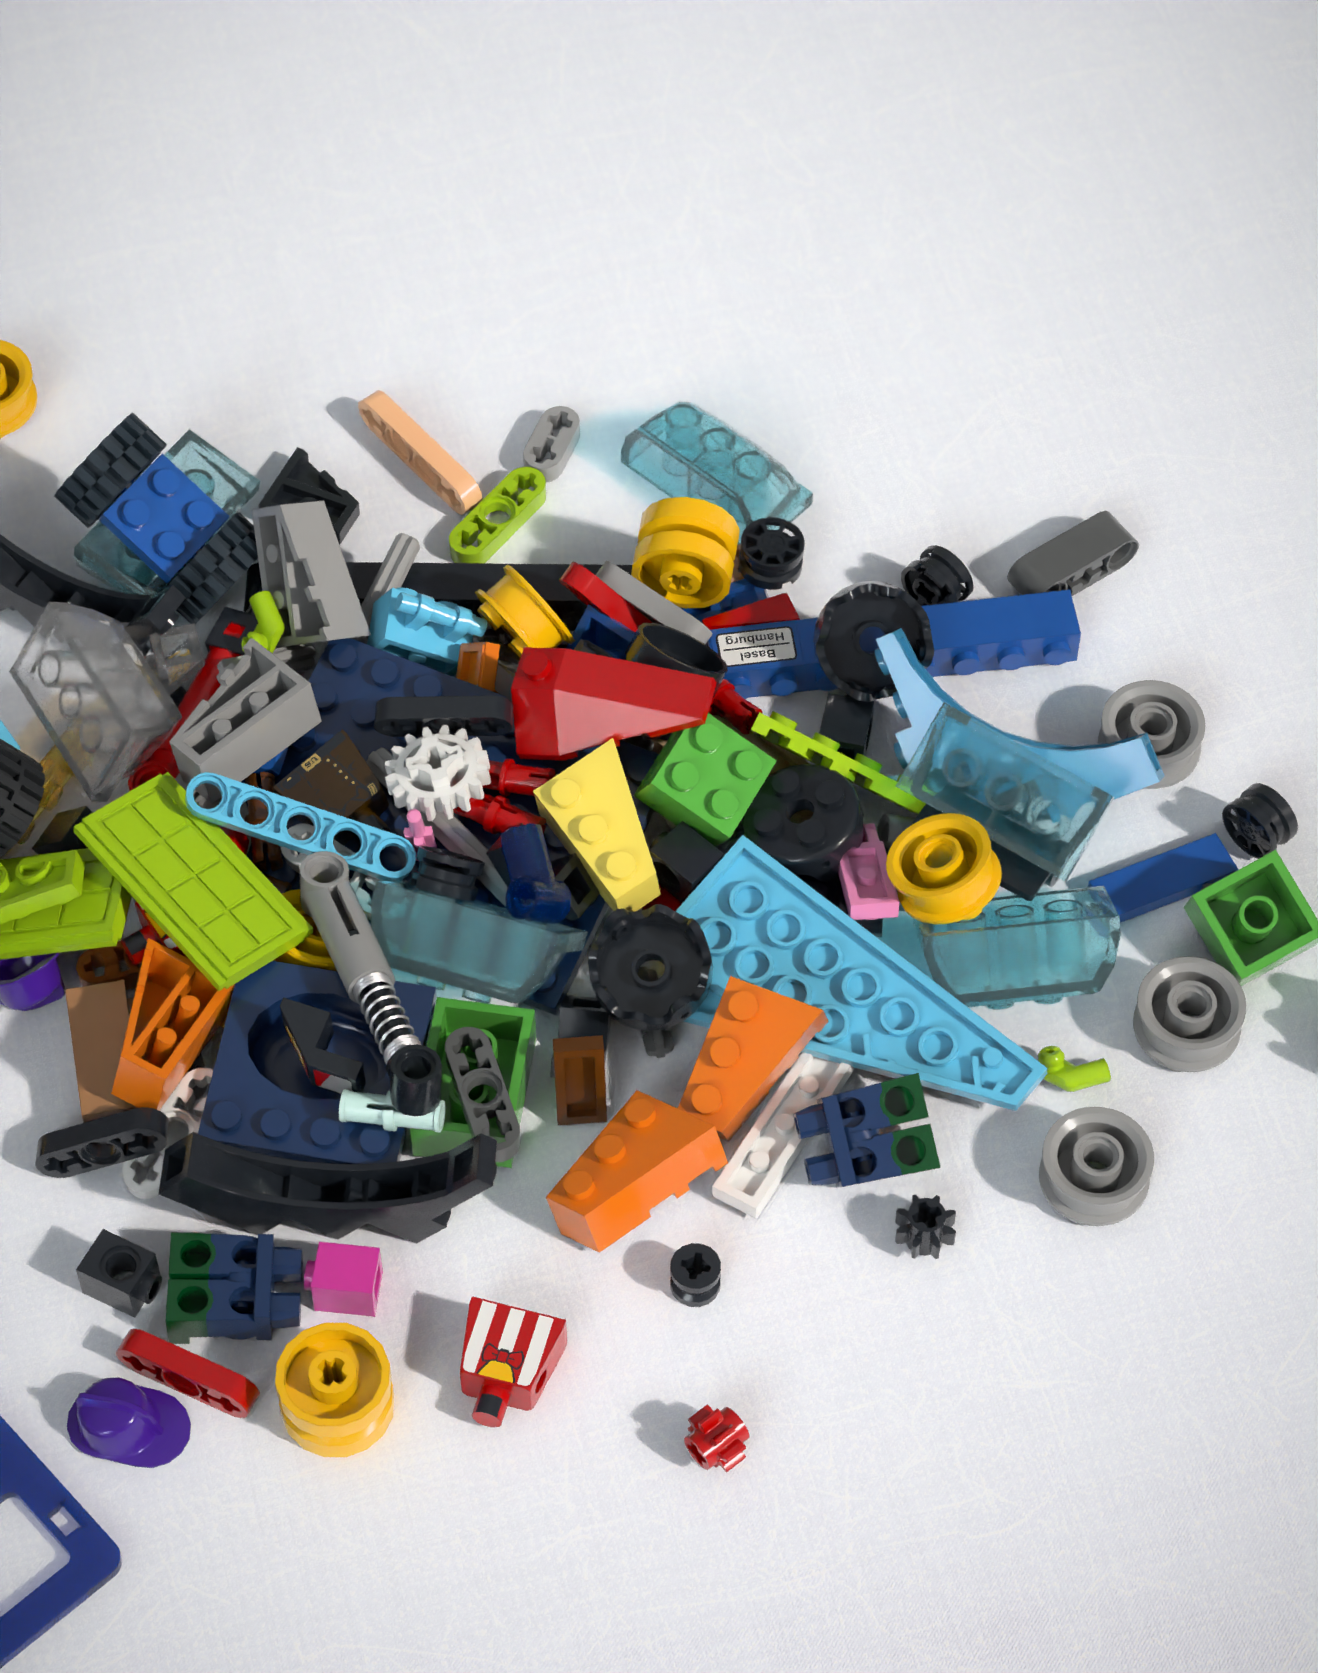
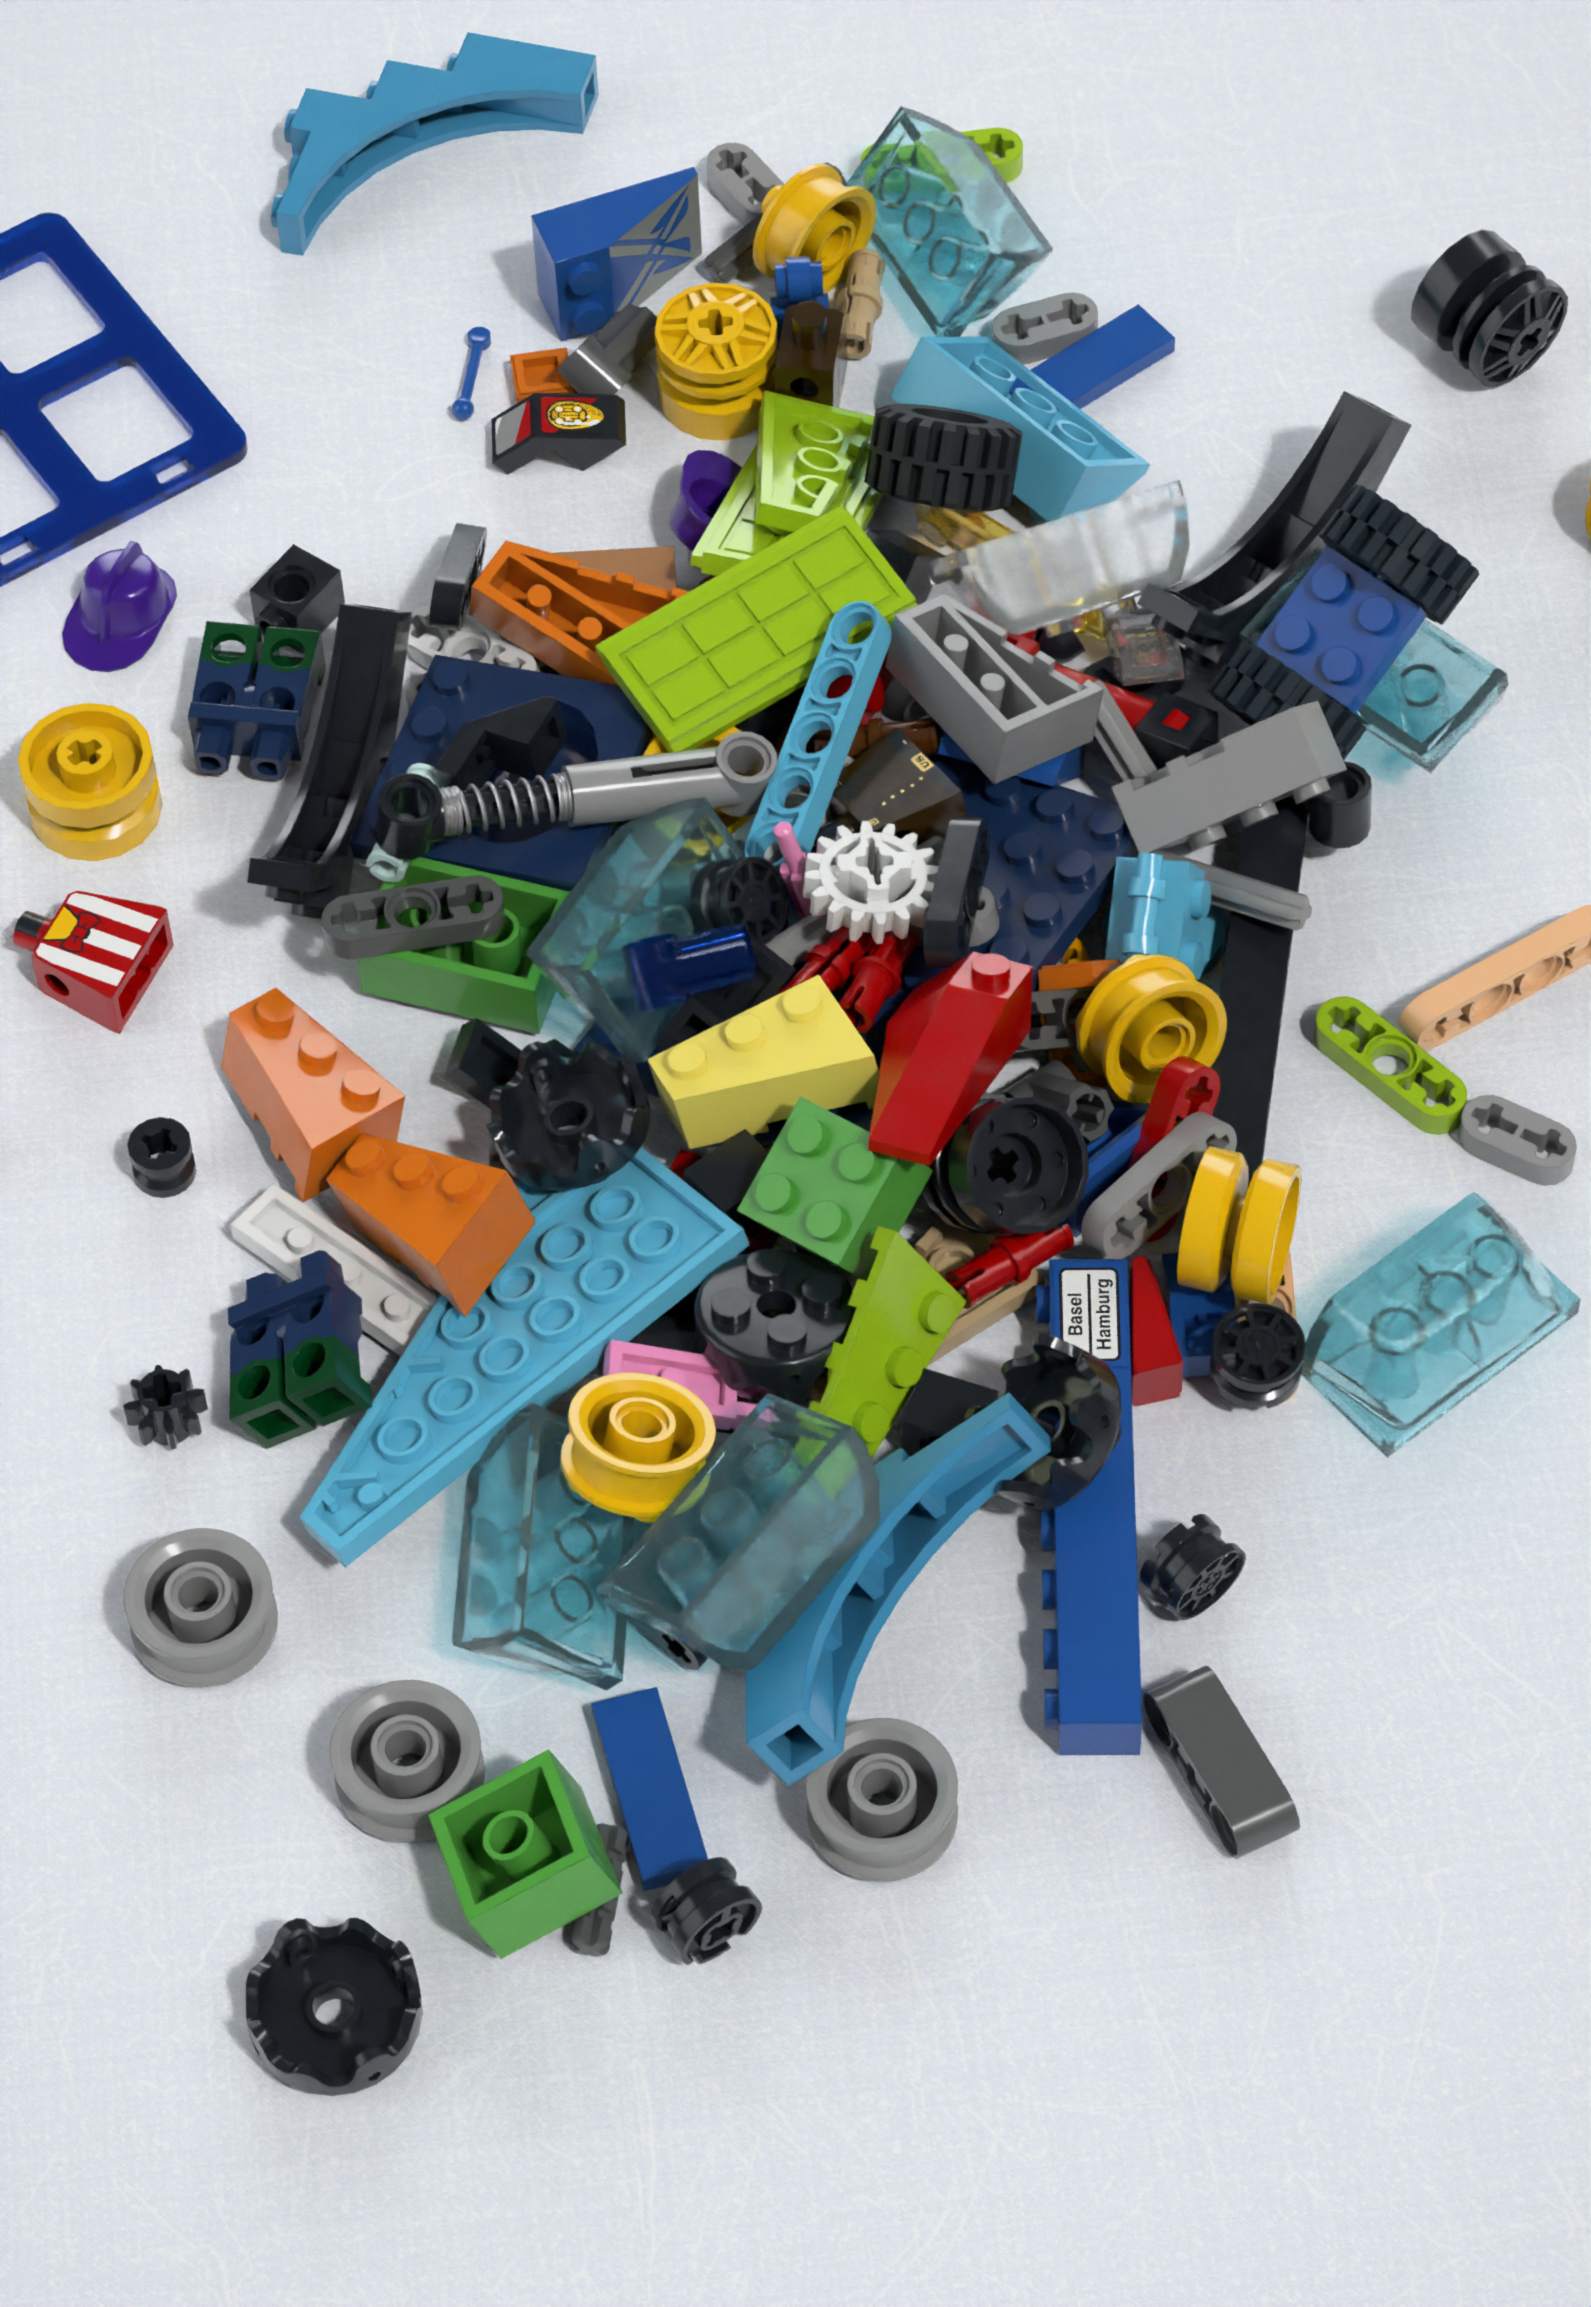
camera: 100 degrees right, 0 degrees up
(188, 1373) = (158, 653): red beam -> none
(270, 624) = (1163, 747): lime arm -> none
(304, 483) = (1438, 851): black wing -> none
(345, 1278) = (237, 808): dark pink brick -> none
(580, 1080) = (437, 1042): reddish brown tile -> none
(1069, 1076) = (361, 1615): lime arm -> none

